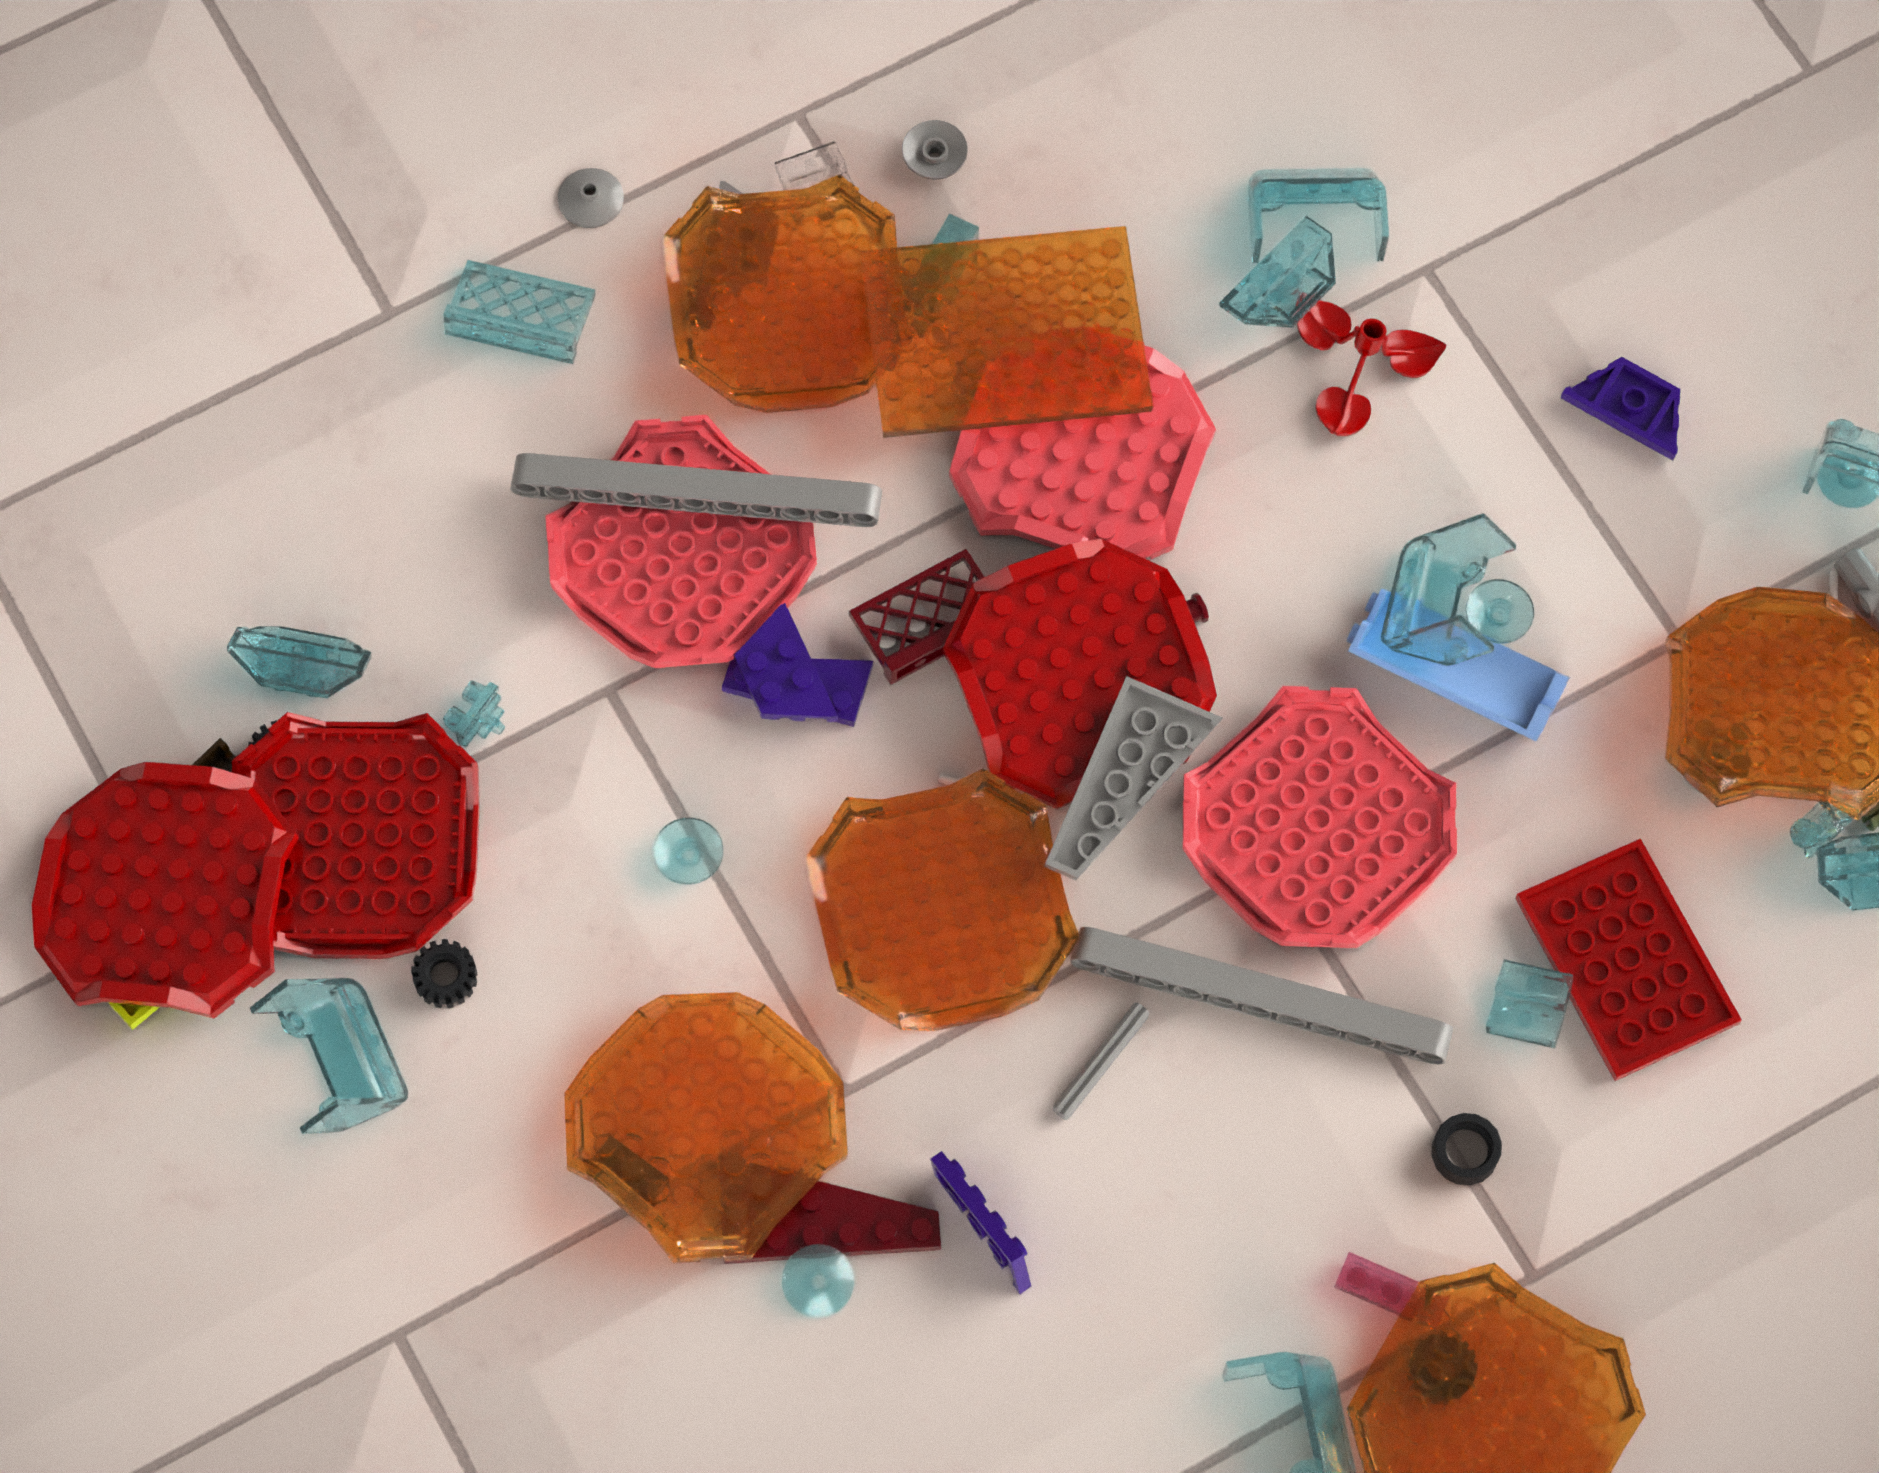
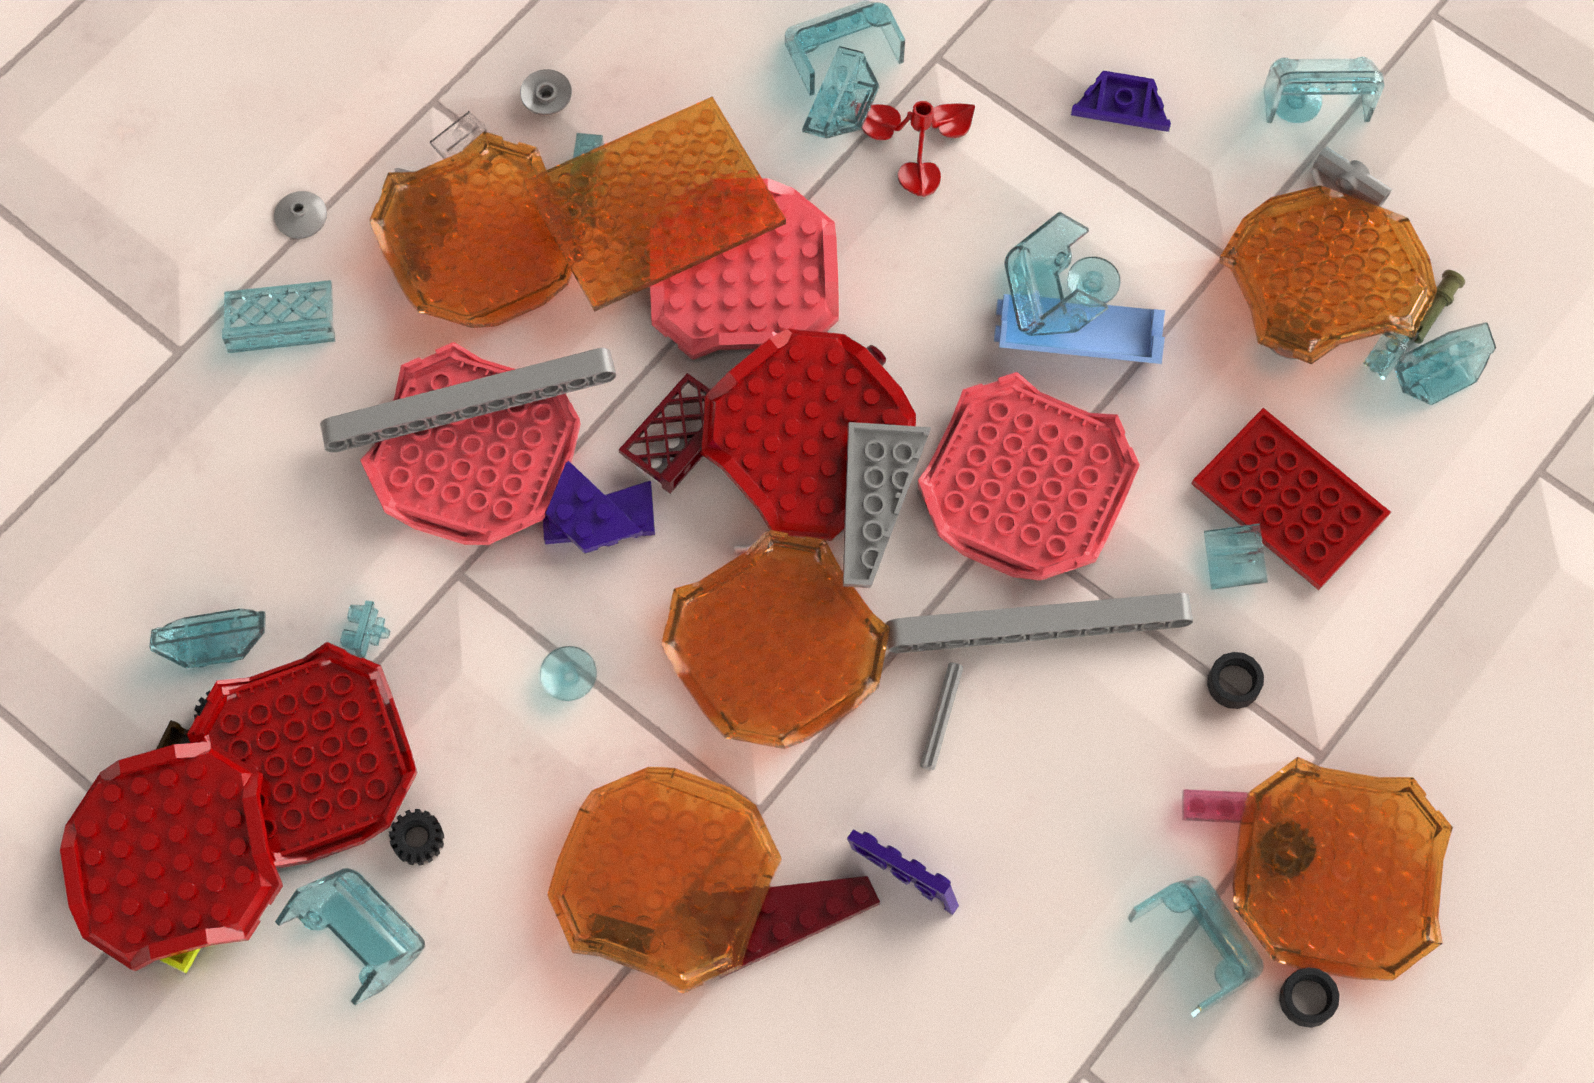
camera: 20 degrees left, 0 degrees up
(814, 1261) = (783, 961): clear light blue dish -> none

